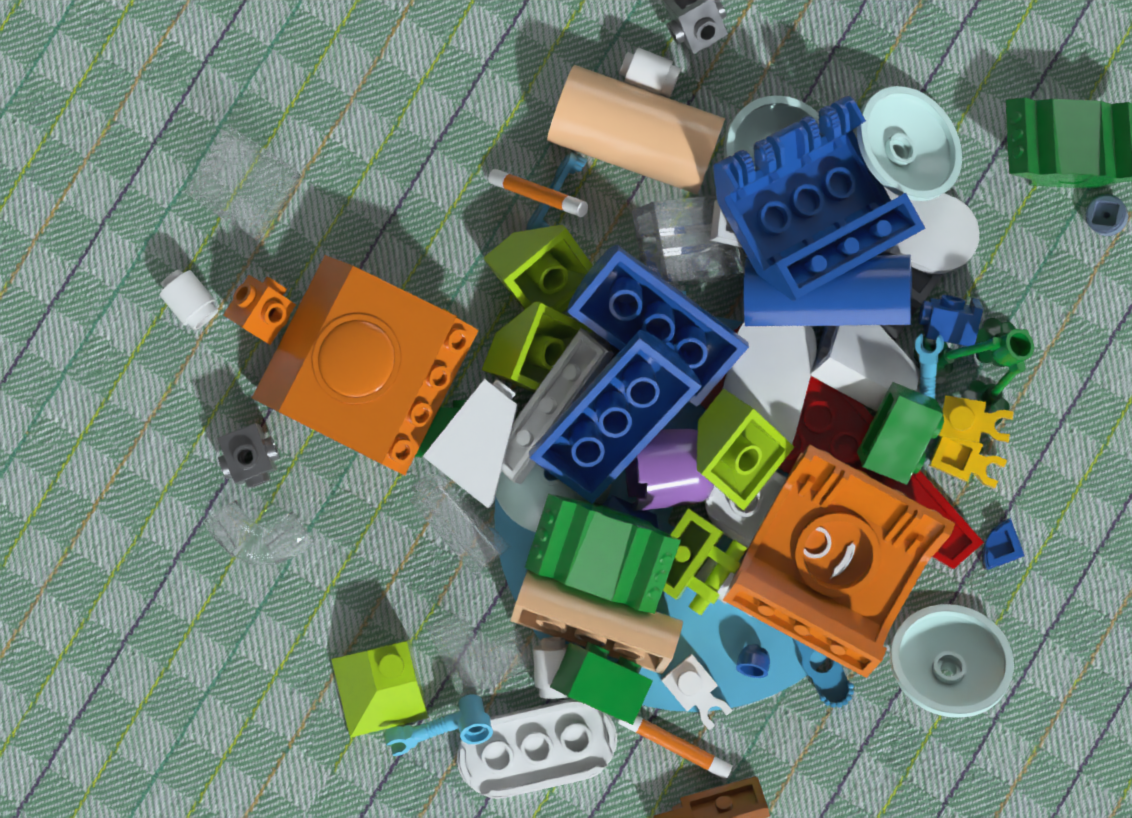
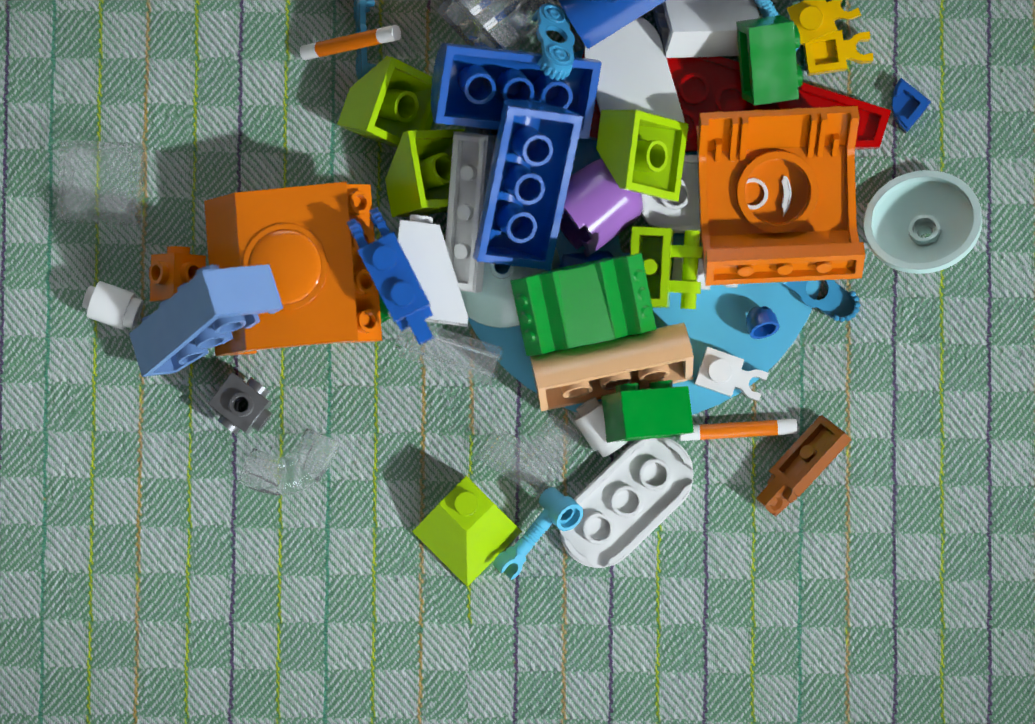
camera: 30 degrees left, 0 degrees up
(259, 359) = (203, 316): none -> medium blue wedge
(445, 429) = (394, 278): none -> blue hinge
(711, 317) = (556, 57): none -> dark azure piece

